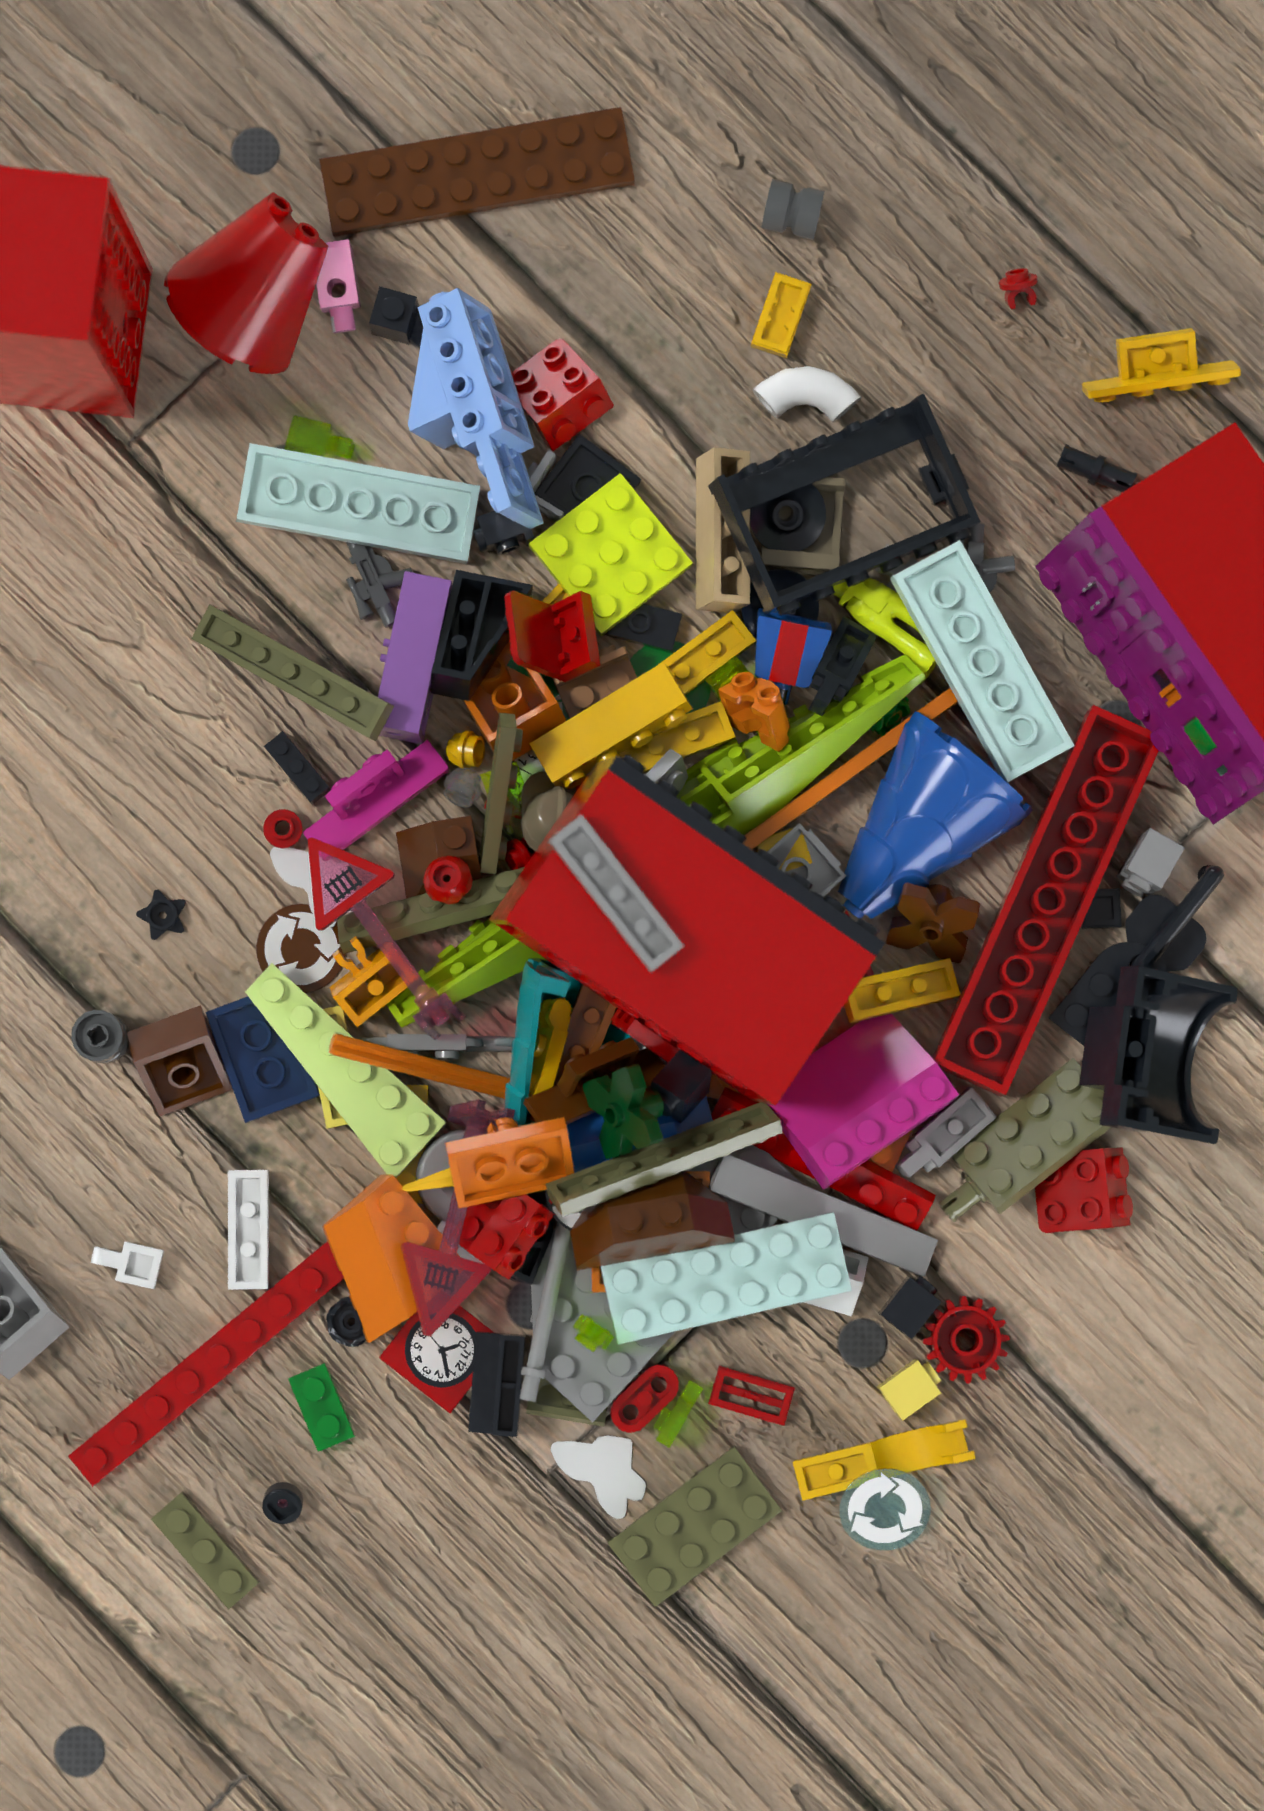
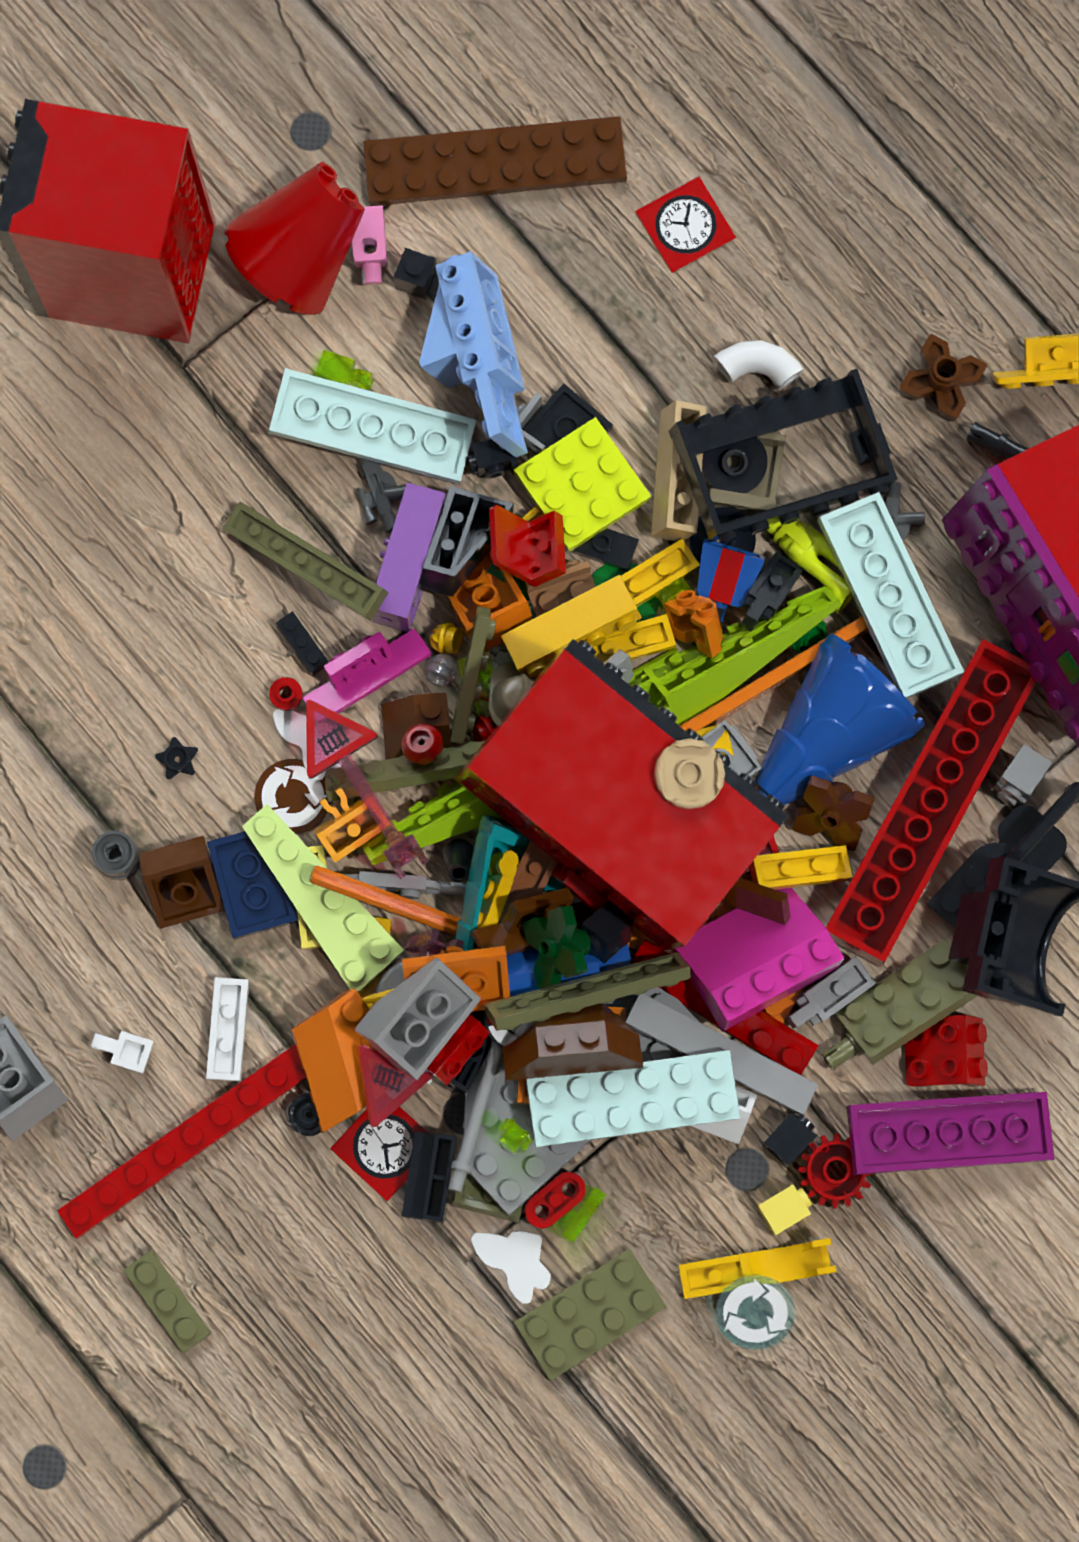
camera: 10 degrees right, 5 degrees down
(282, 1503) = (237, 1265): black tile -> none
(321, 1407) = (277, 1186): green plate -> none
(470, 1208) = (418, 1017): none -> light grey slope
(500, 1010) = (458, 858): none -> black cone
(560, 393) = (550, 348): red bracket -> none
(615, 893) = (562, 752): light grey plate -> none
(708, 231) = (685, 224): none -> sticker
(765, 904) = (689, 774): none -> tan tile
(781, 315) = (741, 297): yellow plate -> none
(784, 1404) = (675, 1216): red tile -> none
(792, 209) = (758, 210): dark grey wheel -> none
(859, 1035) = (759, 900): none -> reddish brown tile
(1018, 281) = (943, 284): red plate -> none
(1030, 411) = (928, 381): none -> reddish brown plant
(1094, 1286) = (950, 1133): none -> magenta plate
(1104, 910) = (980, 815): black tile -> none

